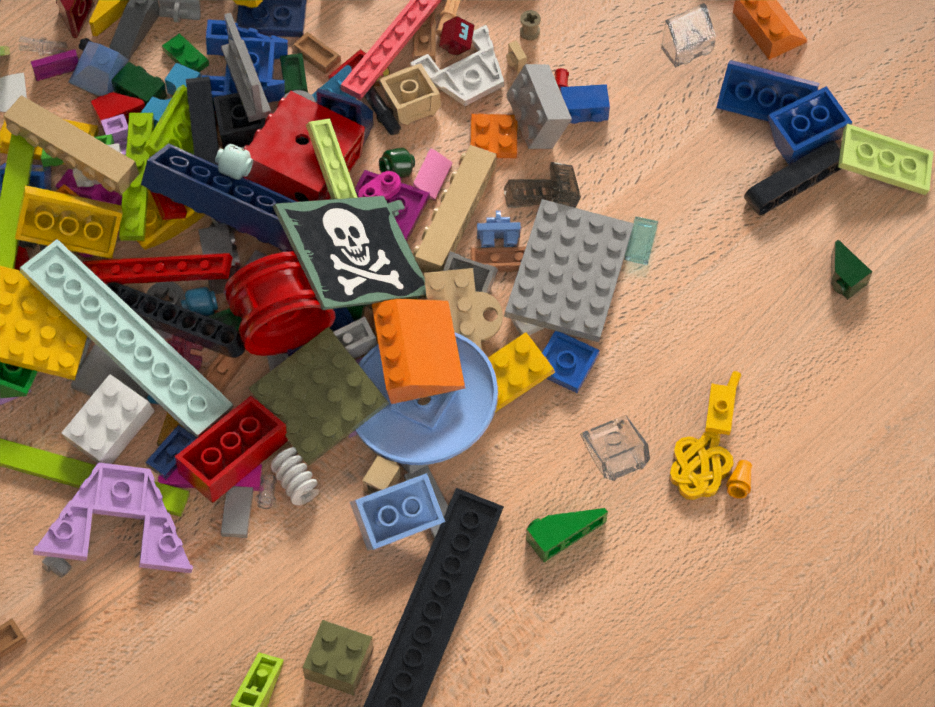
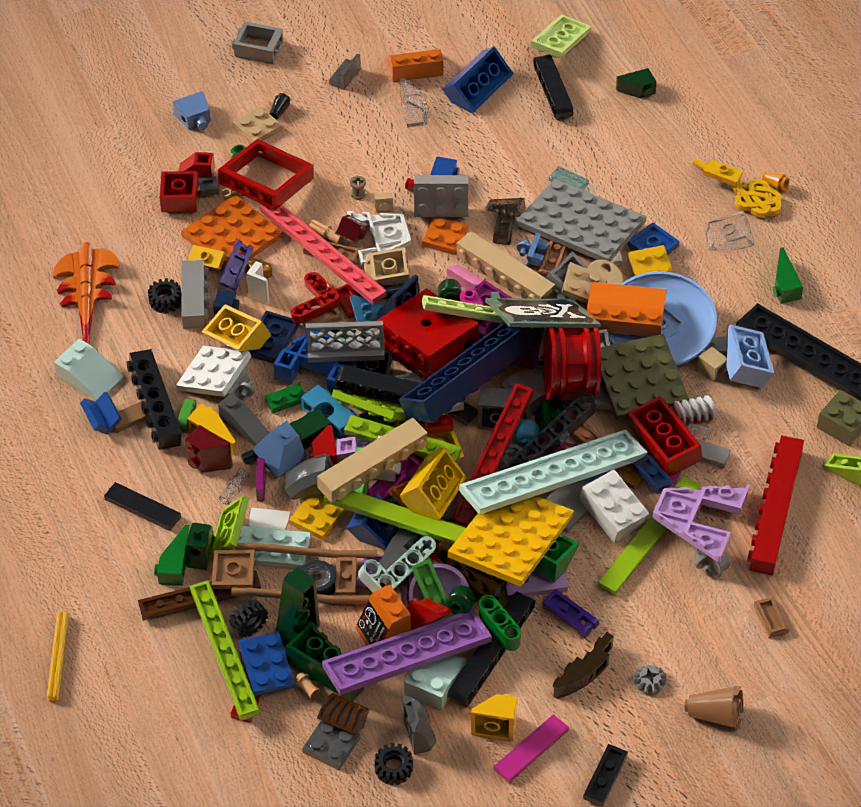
camera: 70 degrees left, 10 degrees down
(70, 106) = (302, 479): none -> dark grey slope
(170, 607) = (776, 505): none -> red brick
(234, 161) = (436, 360): light aqua head -> none
(337, 47) = (325, 299): none -> red beam
(807, 124) = (519, 63): blue slope -> none

